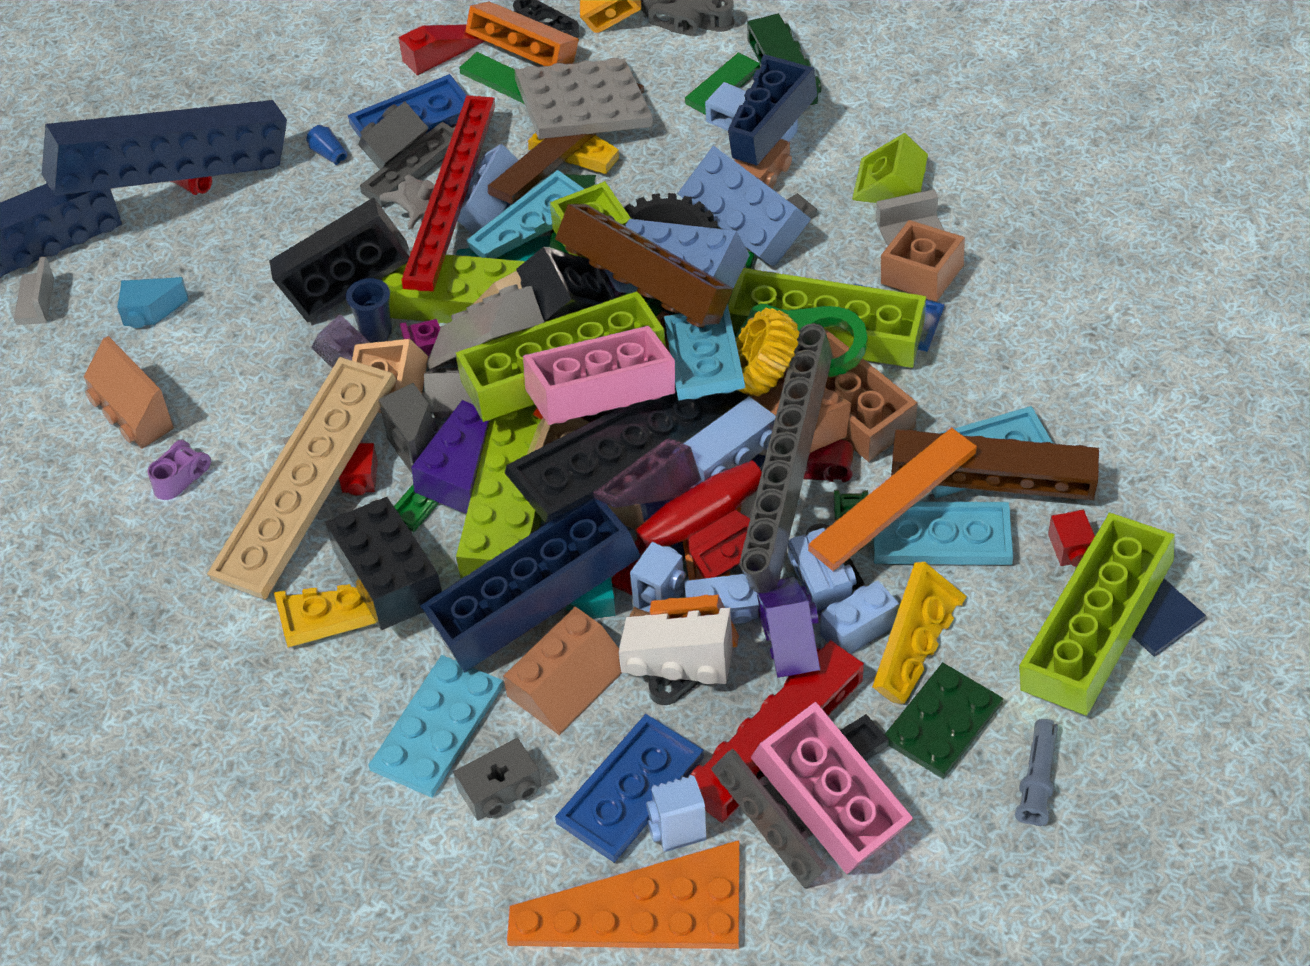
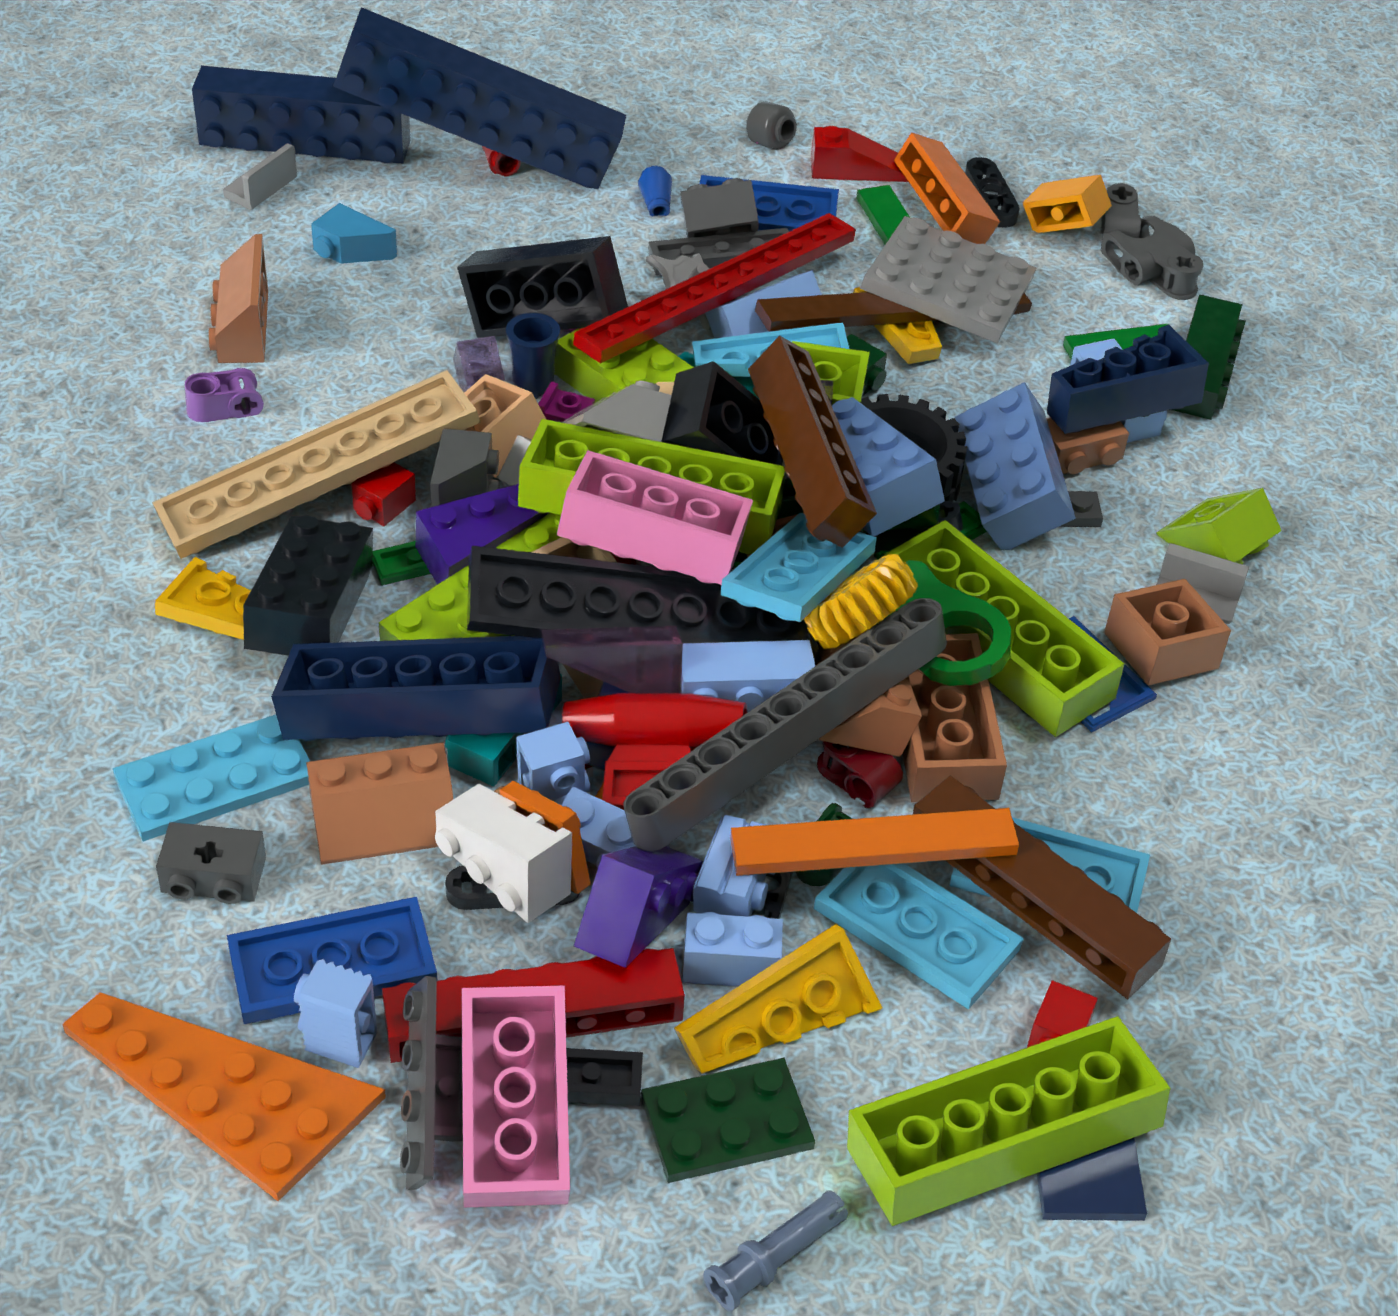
camera: 30 degrees right, 5 degrees down
(359, 51) = (771, 125): none -> dark grey head

